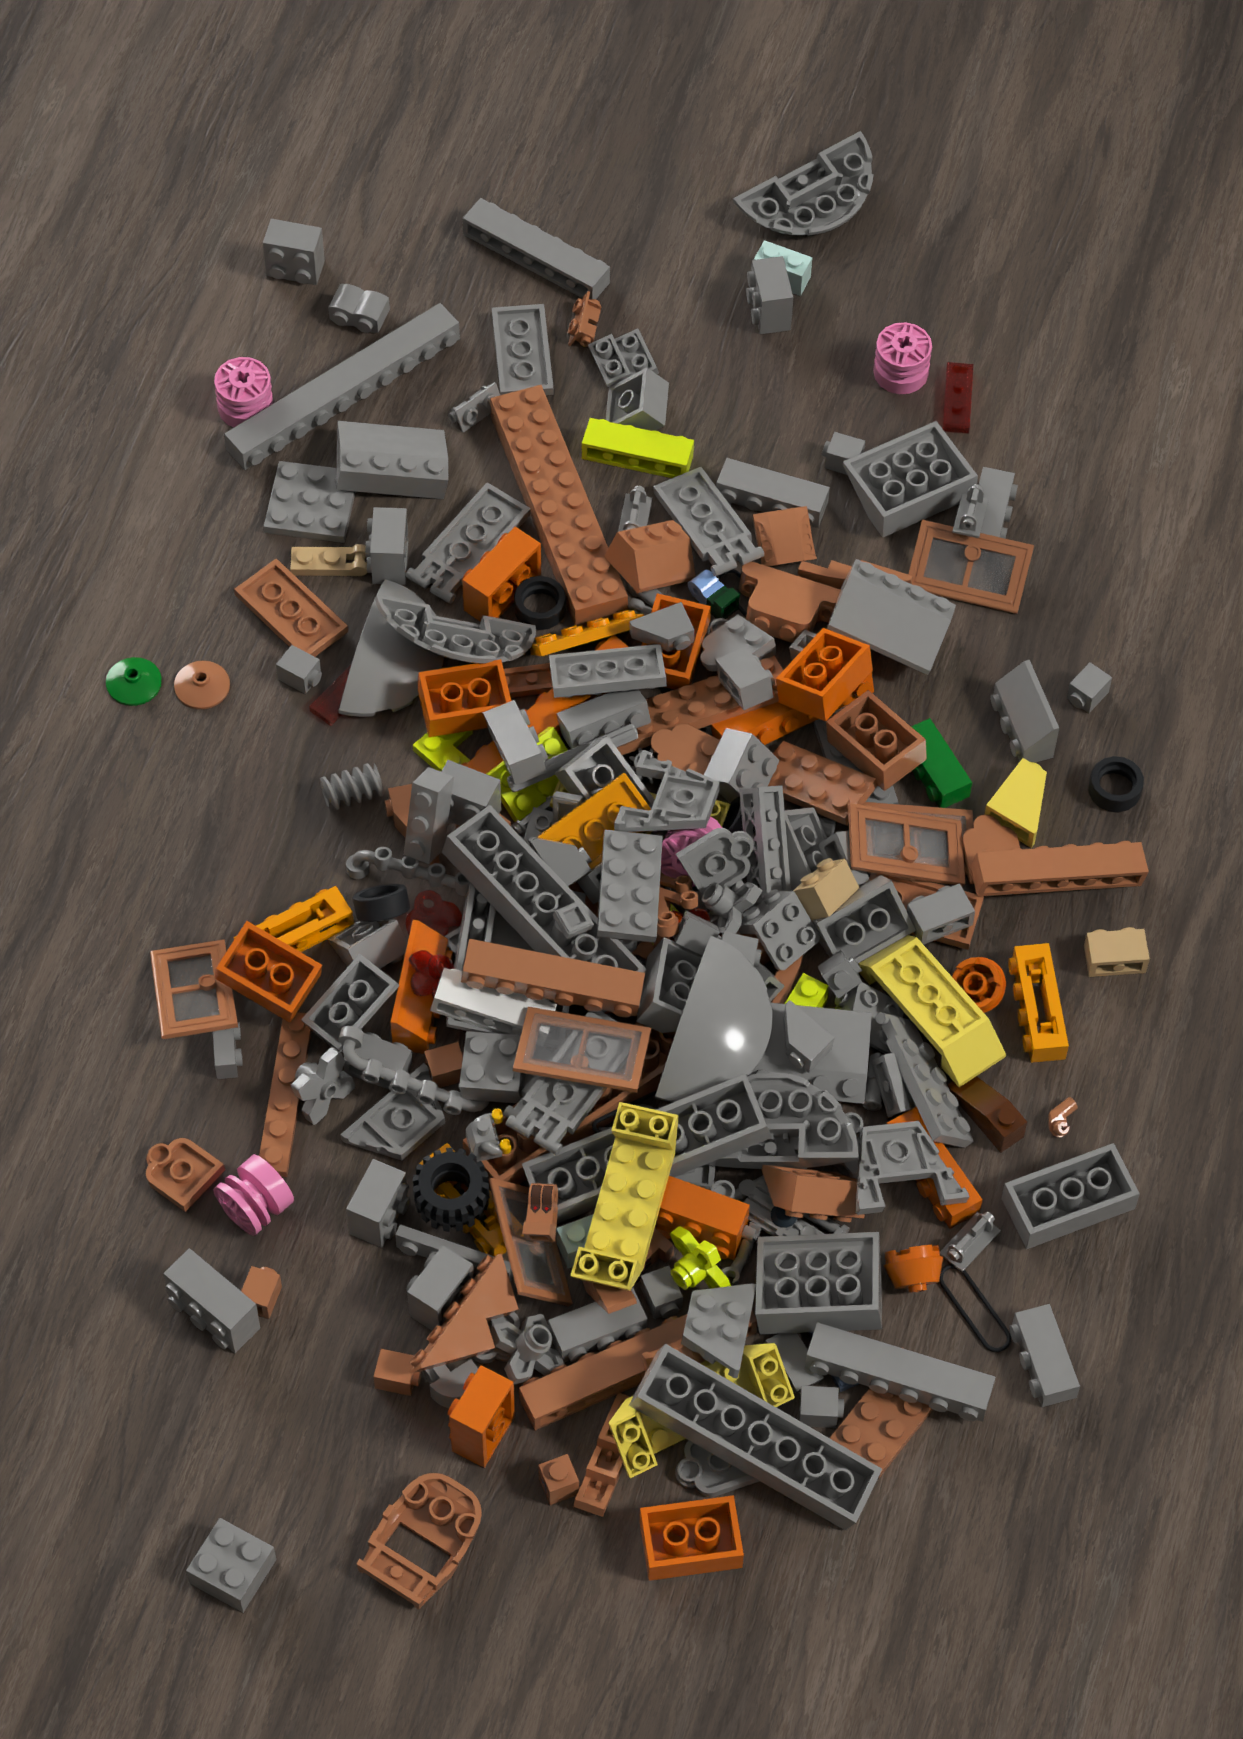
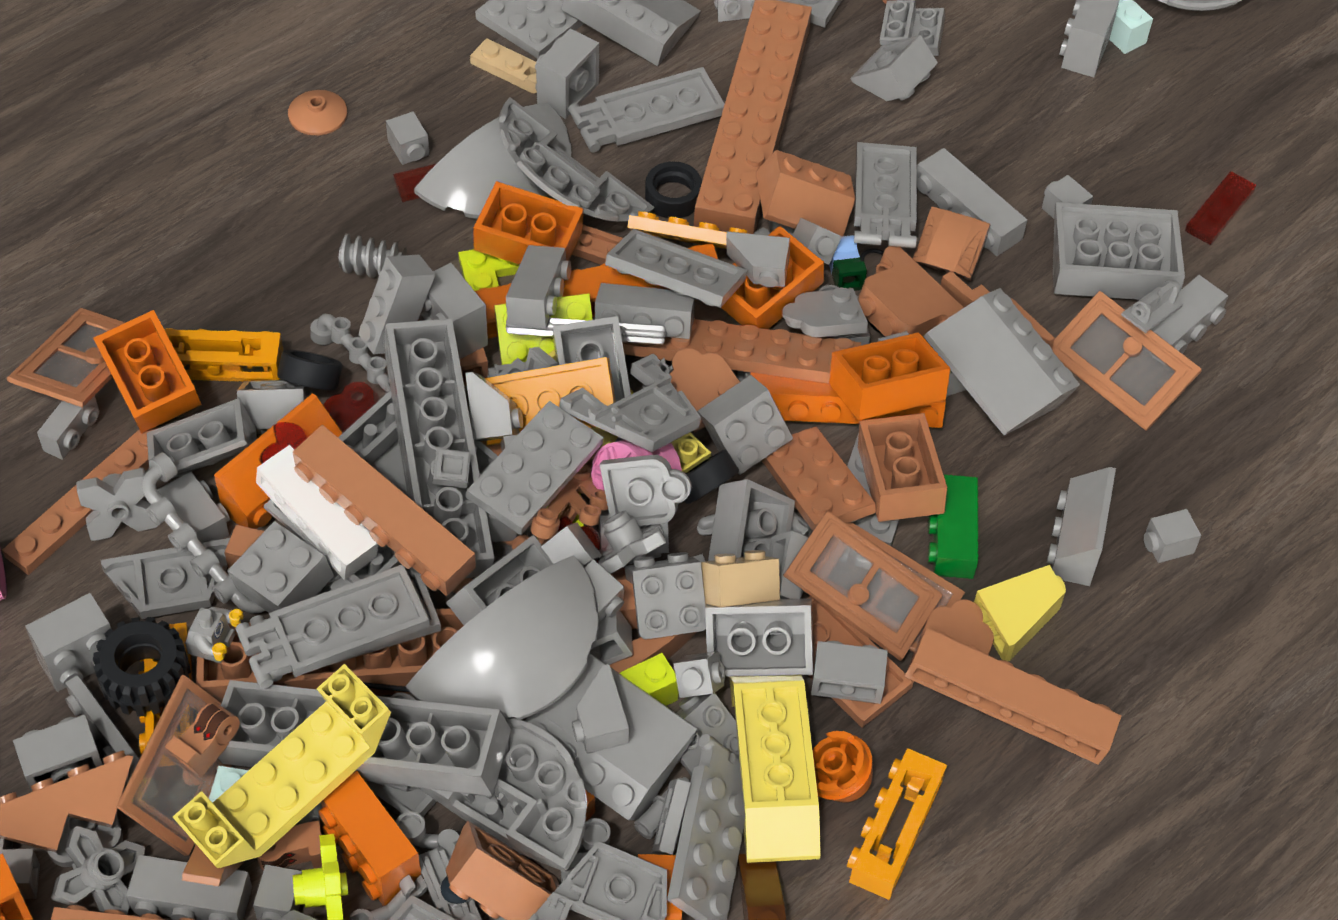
camera: 30 degrees right, 5 degrees down
(133, 690) = (261, 81): green dish -> none
(291, 609) = (443, 88): nougat plate -> none
(493, 581) = (643, 141): orange brick -> none
(582, 1049) = (362, 597): clear door -> none
(635, 509) = (830, 152): light grey hinge -> none
(637, 448) = (866, 104): neon yellow brick -> none
(685, 587) = (817, 239): none -> light grey brick
(745, 678) = (808, 341): light grey brick -> none
(770, 838) = (714, 499): light grey fence -> none
(902, 358) = (1184, 144): bright pink wheel -> none
(1116, 952) = (1019, 816): tan brick -> none
(1121, 766) = (1143, 624): black tyre -> none

